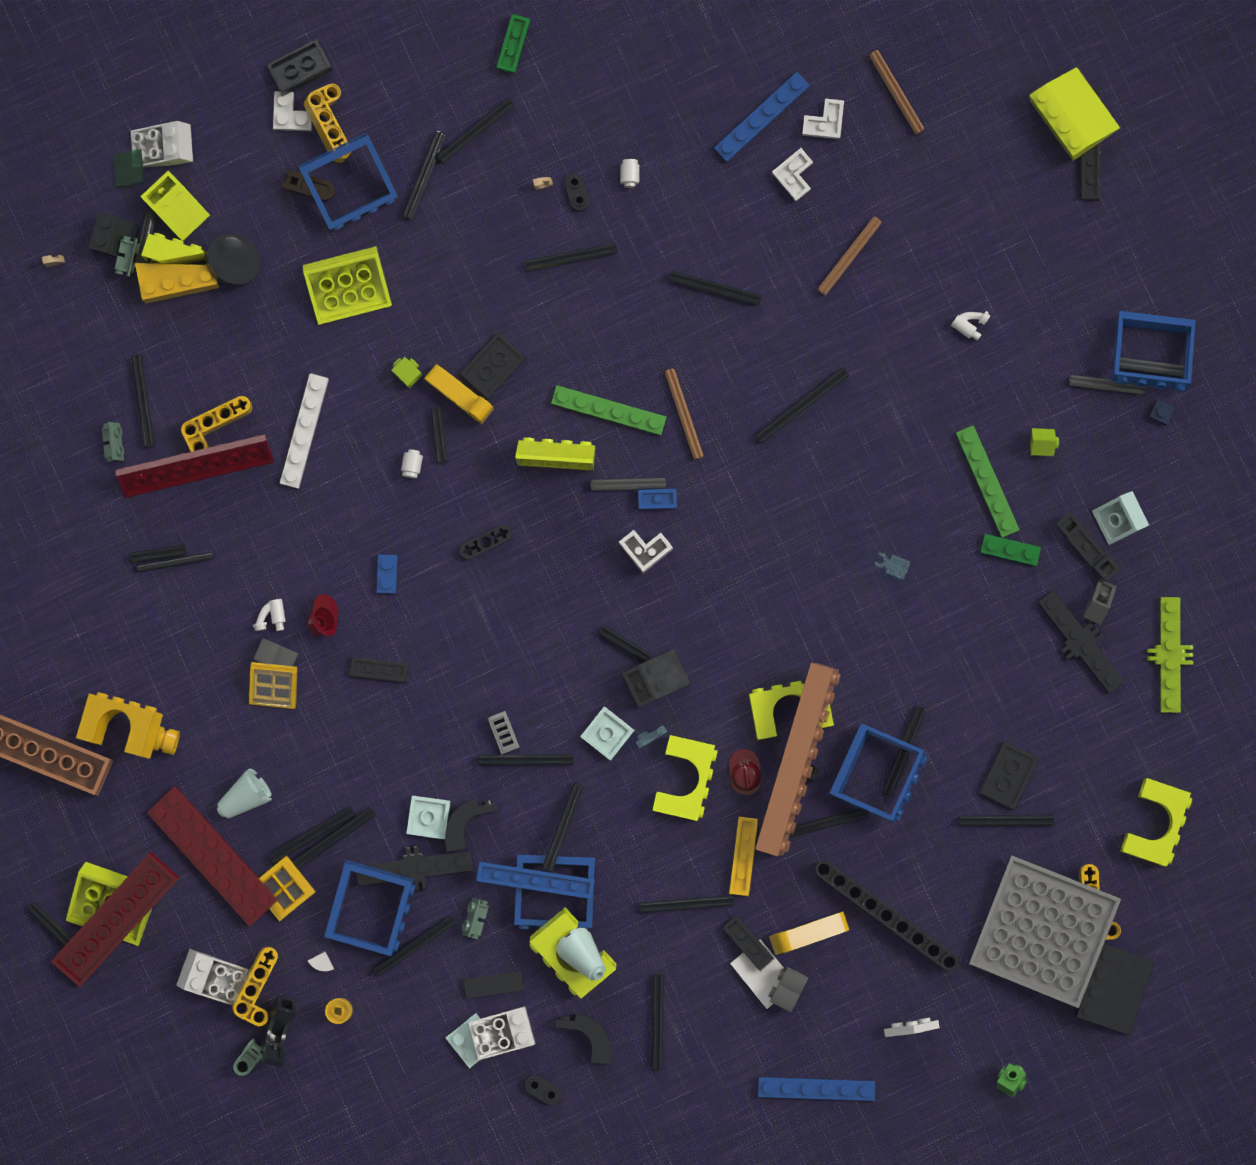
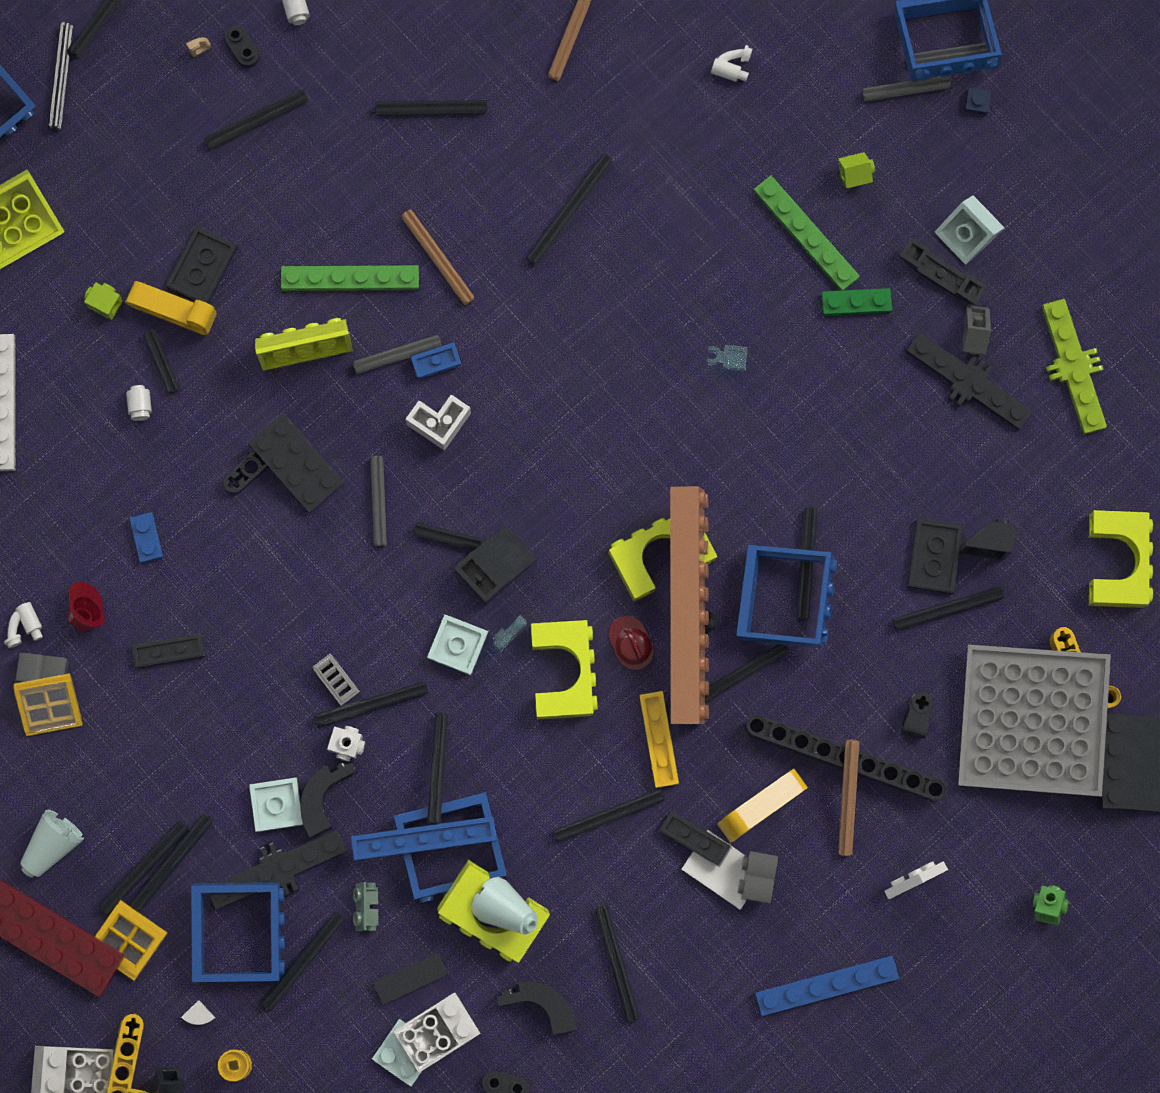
camera: 25 degrees left, 5 degrees down
(489, 785) = (339, 737): none -> white brick
(521, 549) = (295, 462): none -> black plate
(578, 599) = (378, 501): none -> dark grey axle
(878, 948) = (848, 797): none -> medium nougat axle
(951, 902) = (917, 720): none -> black piece
(1058, 778) = (992, 541): none -> black slope

